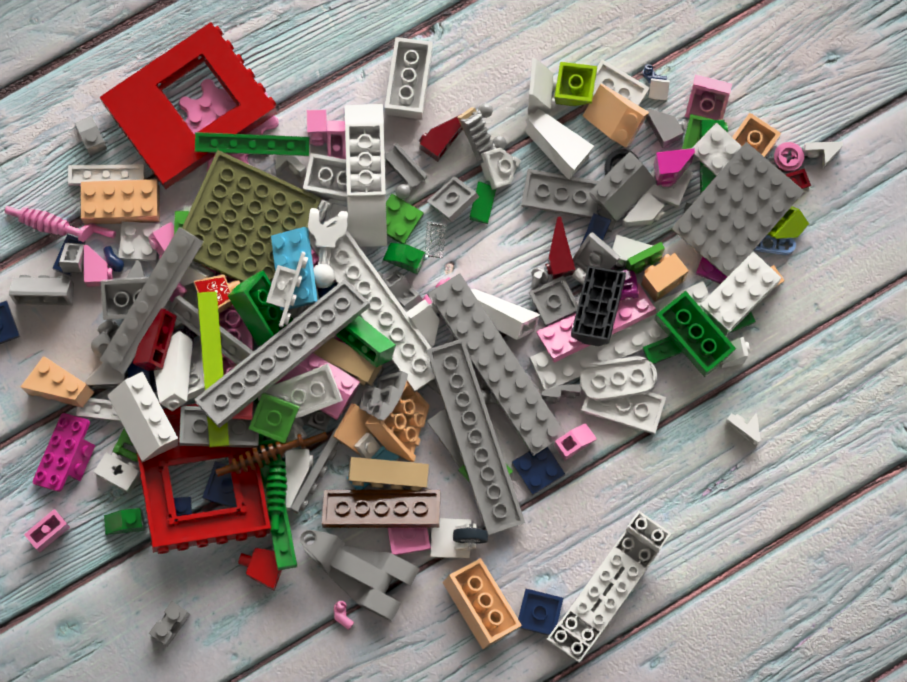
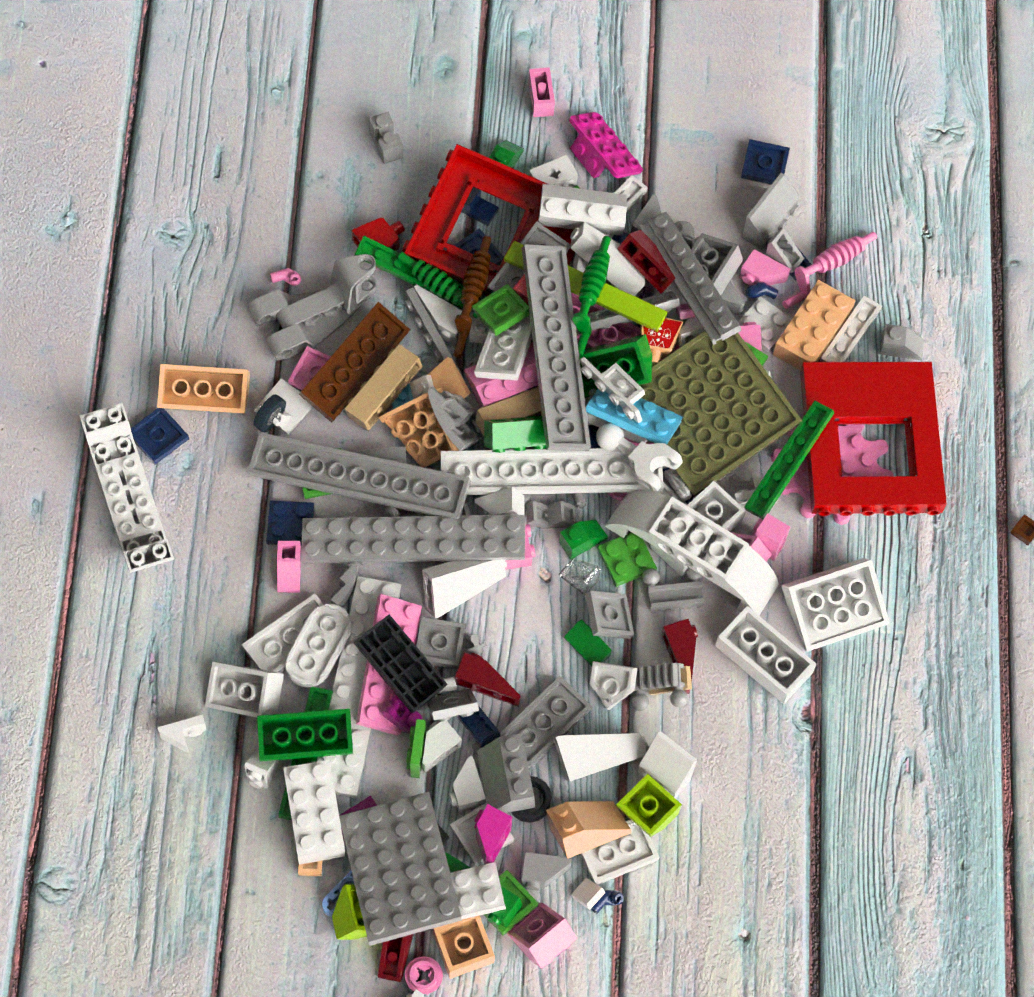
camera: 120 degrees right, 10 degrees down
(55, 383) = (670, 174): light nougat wedge -> none
(215, 357) = (591, 287): none -> green piece
(333, 59) = (836, 603): none -> white slope
(664, 276) = (385, 751): light nougat brick -> none
(688, 404) = (243, 690): none -> white slope

